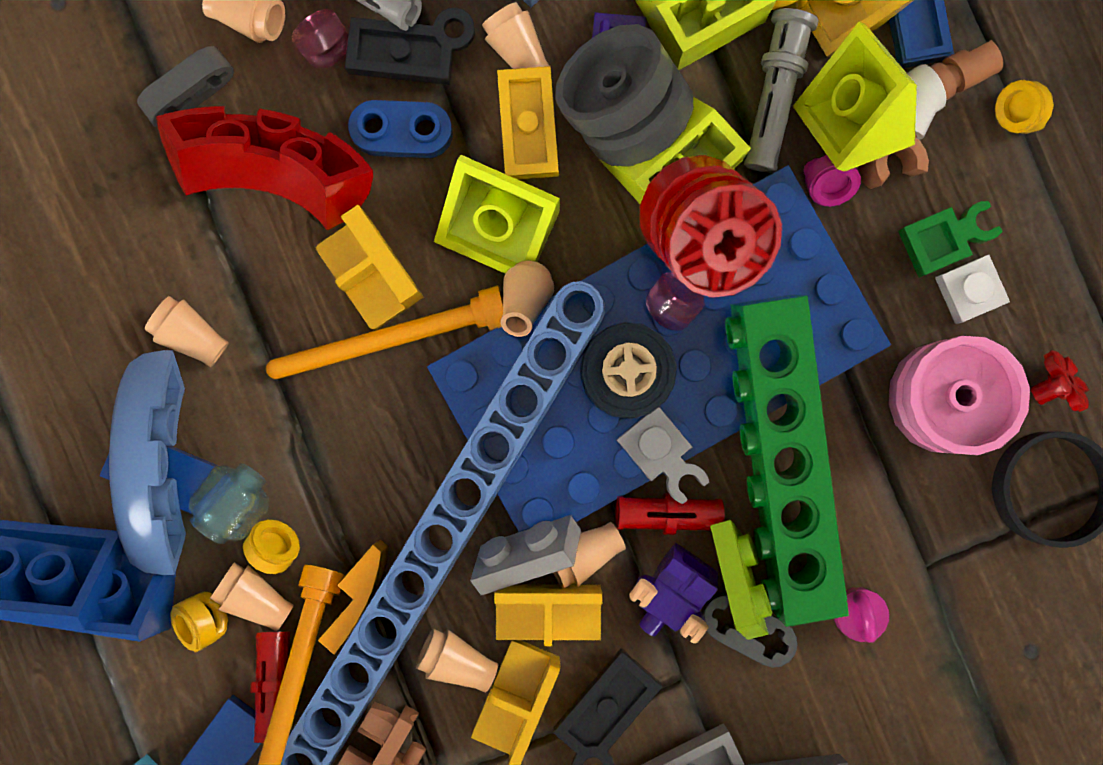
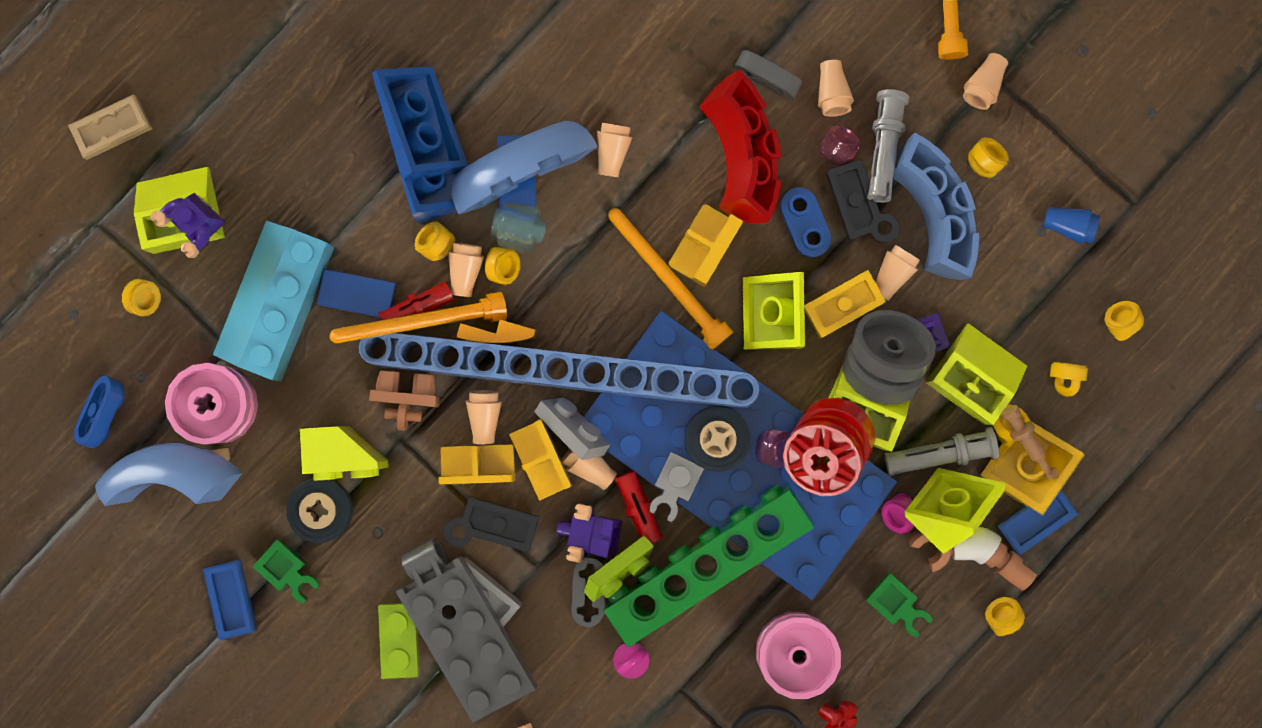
camera: 60 degrees right, 0 degrees up
(525, 294) = (736, 352): light nougat cone -> none
(972, 289) = (872, 637): white plate -> none

